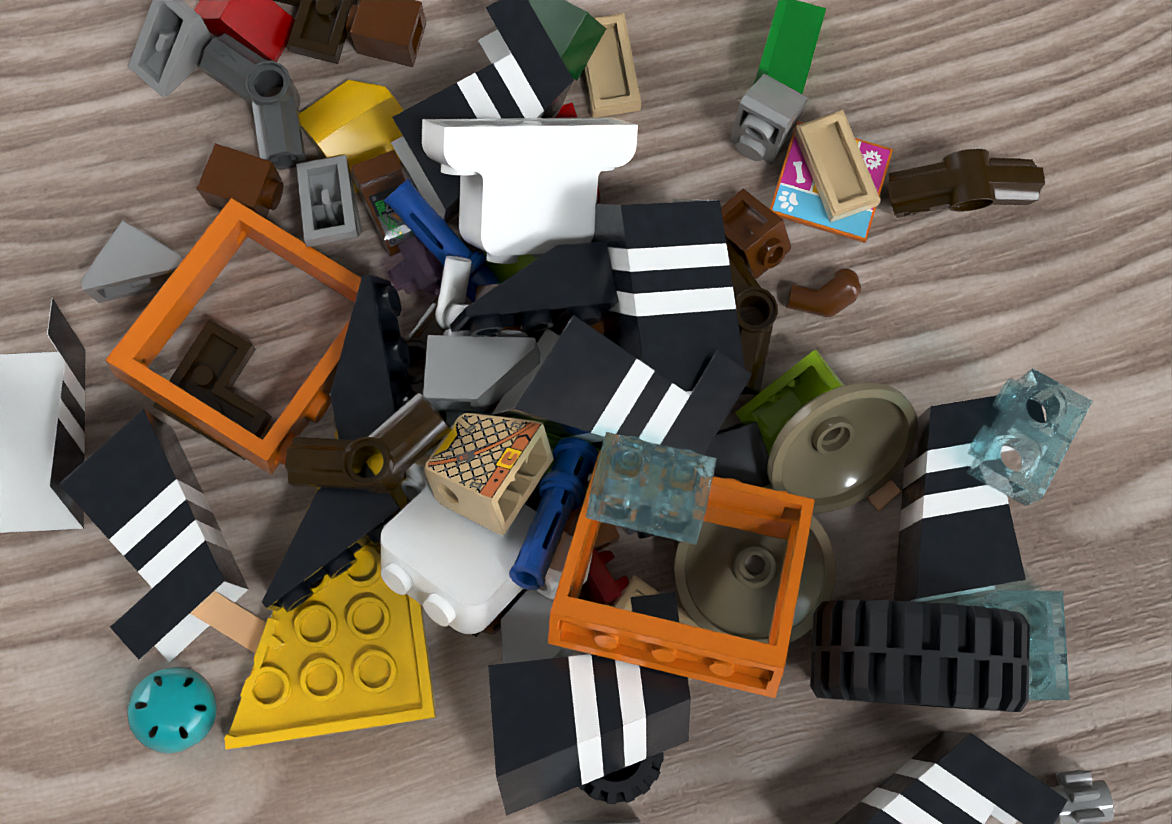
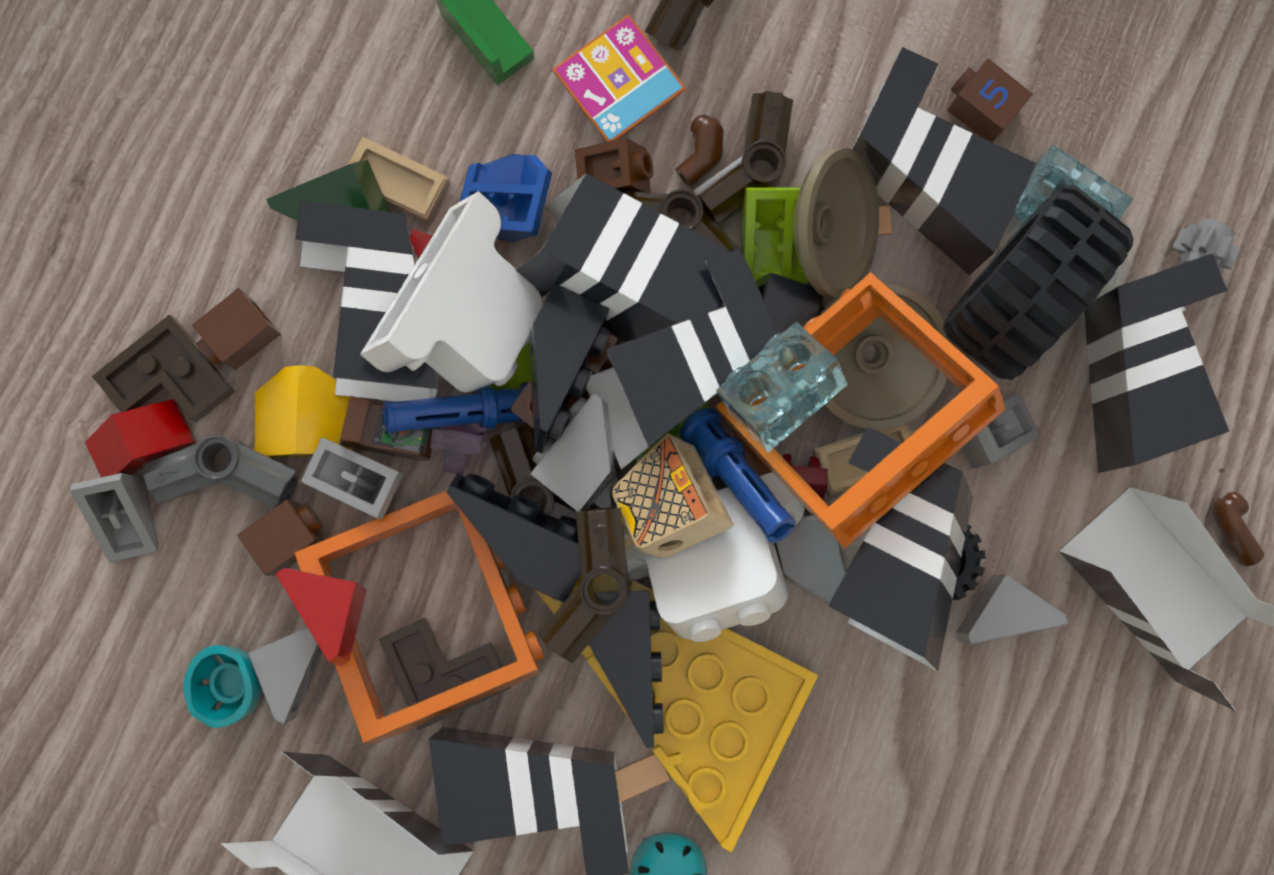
camera: 60 degrees left, 5 degrees up
(88, 228) = (230, 683): none -> teal helmet
(196, 253) = (328, 608): none -> red slope
(452, 290) = (496, 424): white arm -> none
(663, 162) = (517, 190): none -> blue slope
(766, 119) = (535, 90): light grey slope -> none
(771, 729) = (1002, 435): none -> light grey slope
(836, 166) = (612, 65): tan tile -> none
(872, 339) = (764, 140): none -> dark brown piece
(1038, 444) = (951, 78): clear light blue brick -> none
(1064, 512) = (987, 99): none -> reddish brown brick

